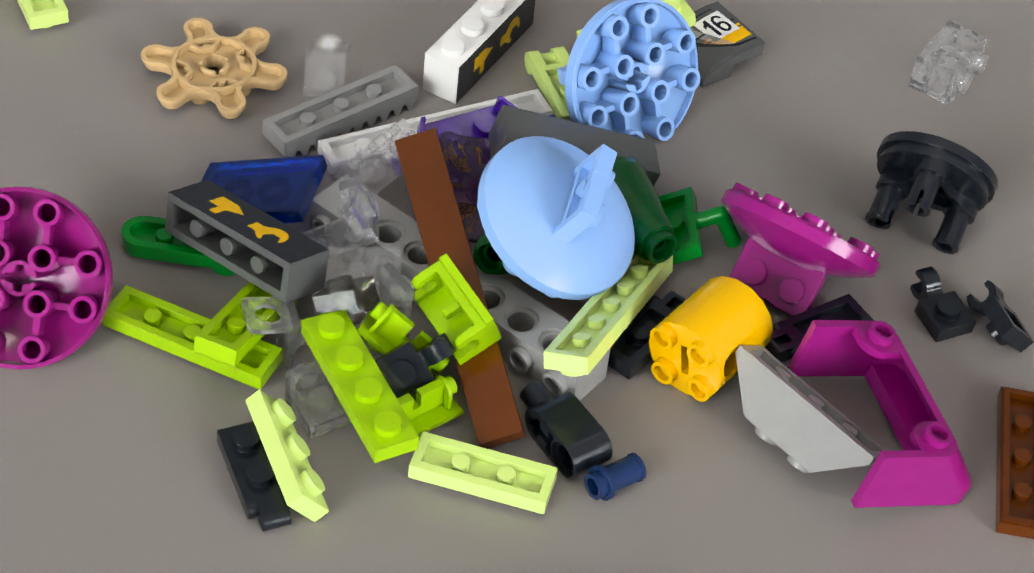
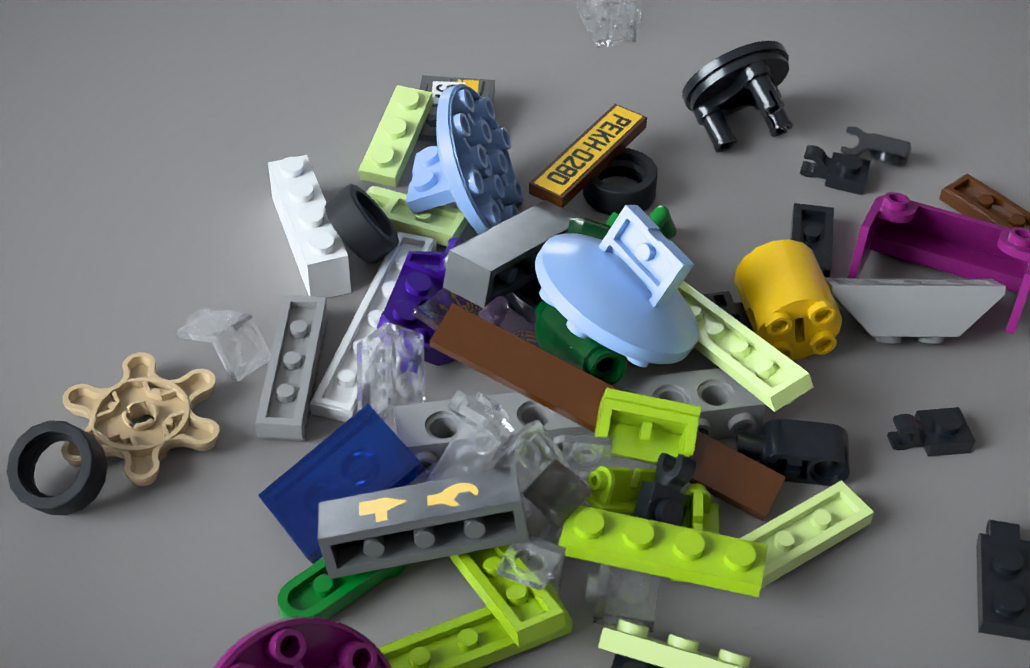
camera: 45 degrees left, 0 degrees up
(137, 65) = (29, 449): none -> black tyre
(486, 63) = (361, 224): none -> black tyre
(605, 481) = (869, 461): dark blue pin -> none
(688, 514) = (937, 430): none -> black plate
(735, 137) = (587, 155): none -> tile
(749, 159) = (612, 199): none -> black tyre
(790, 252) = (737, 200): magenta bracket -> none

